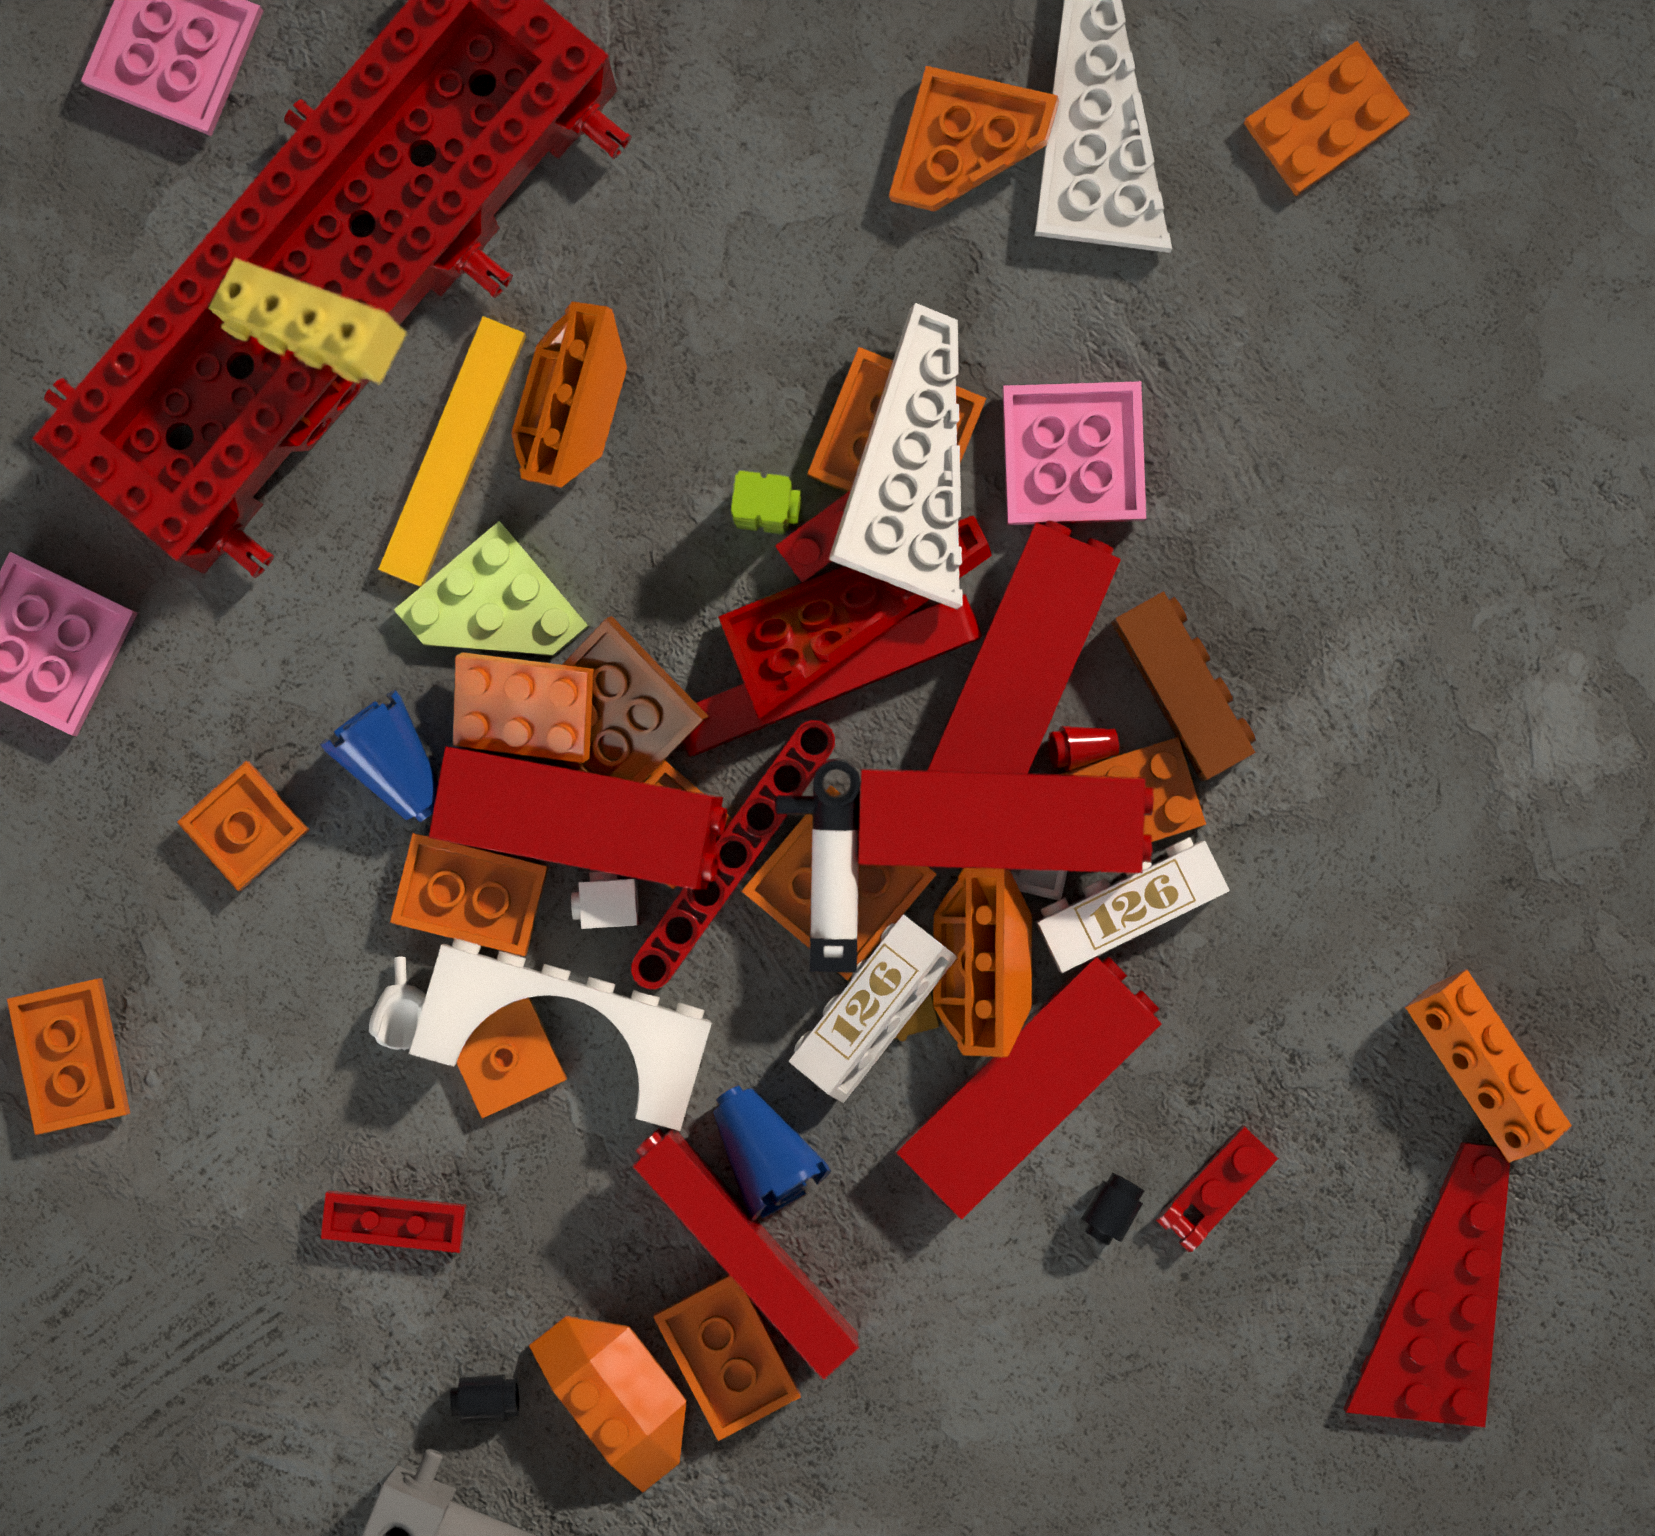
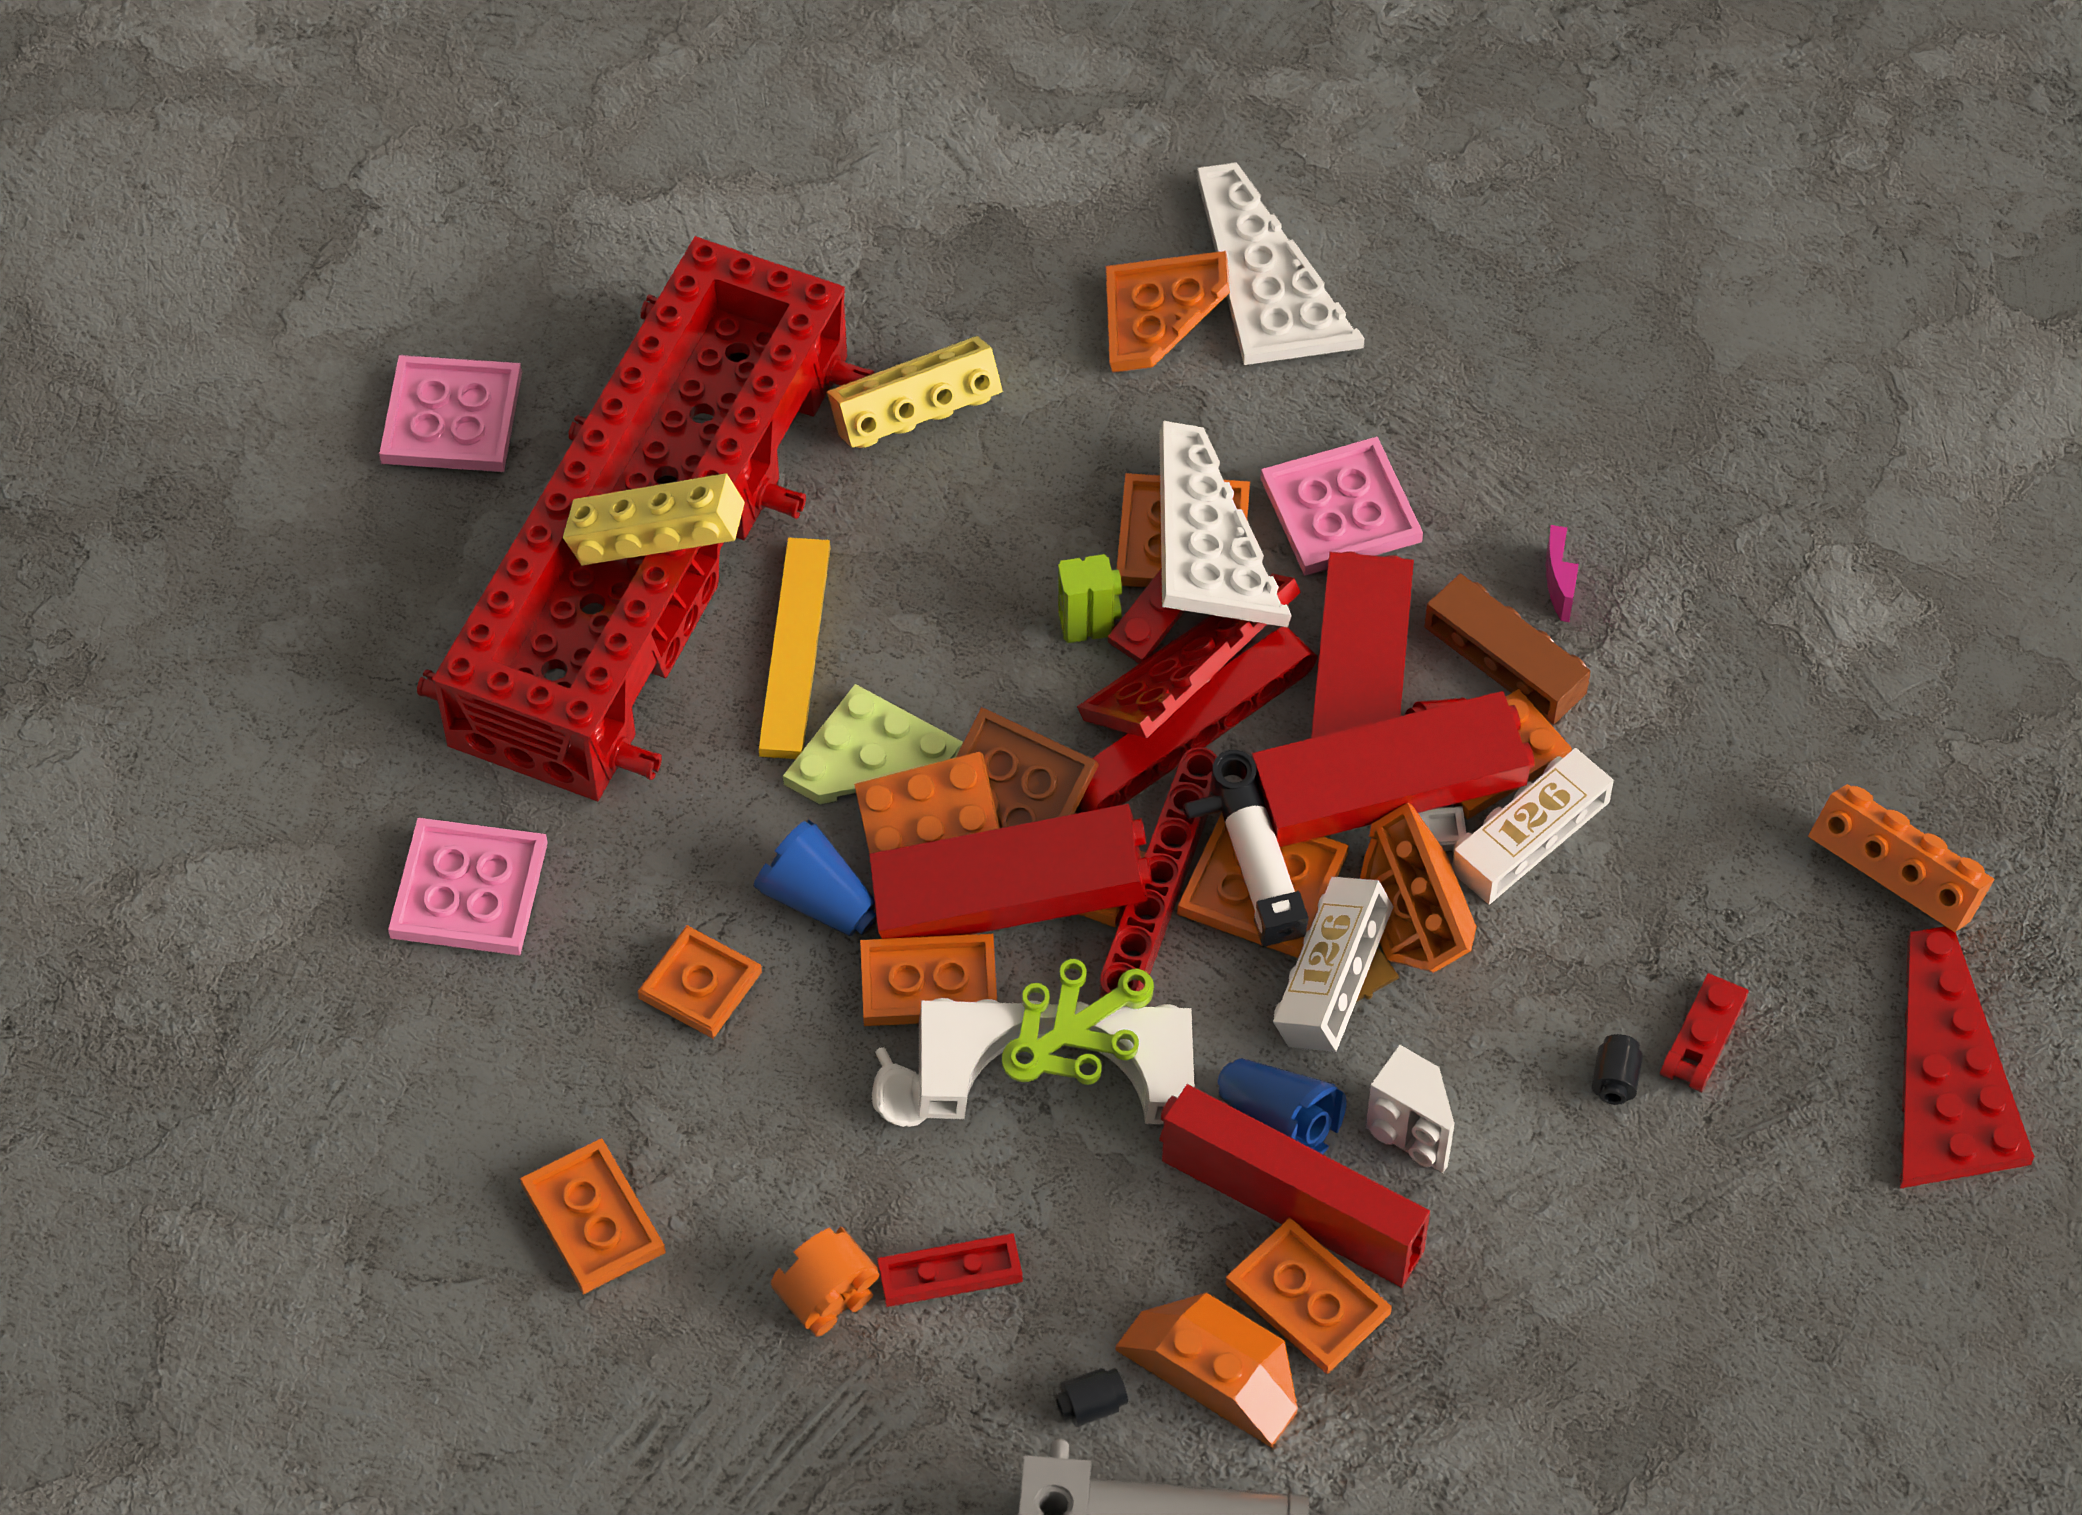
camera: 20 degrees left, 30 degrees down
(265, 1210) = (826, 1280): none -> orange brick
(509, 1058) = (1009, 1113): orange plate -> none
(569, 396) = (886, 564): orange wedge -> none
(581, 1019) = (1073, 1029): none -> lime plant
(606, 902) = (1055, 942): white brick -> none
(665, 176) = (915, 392): none -> light yellow brick
(893, 1202) = (1412, 1109): none -> white slope
(1023, 1097) = (1503, 986): red brick -> none
(1269, 622) = (1560, 575): none -> dark pink slope
(1326, 118) = (1454, 225): orange plate -> none

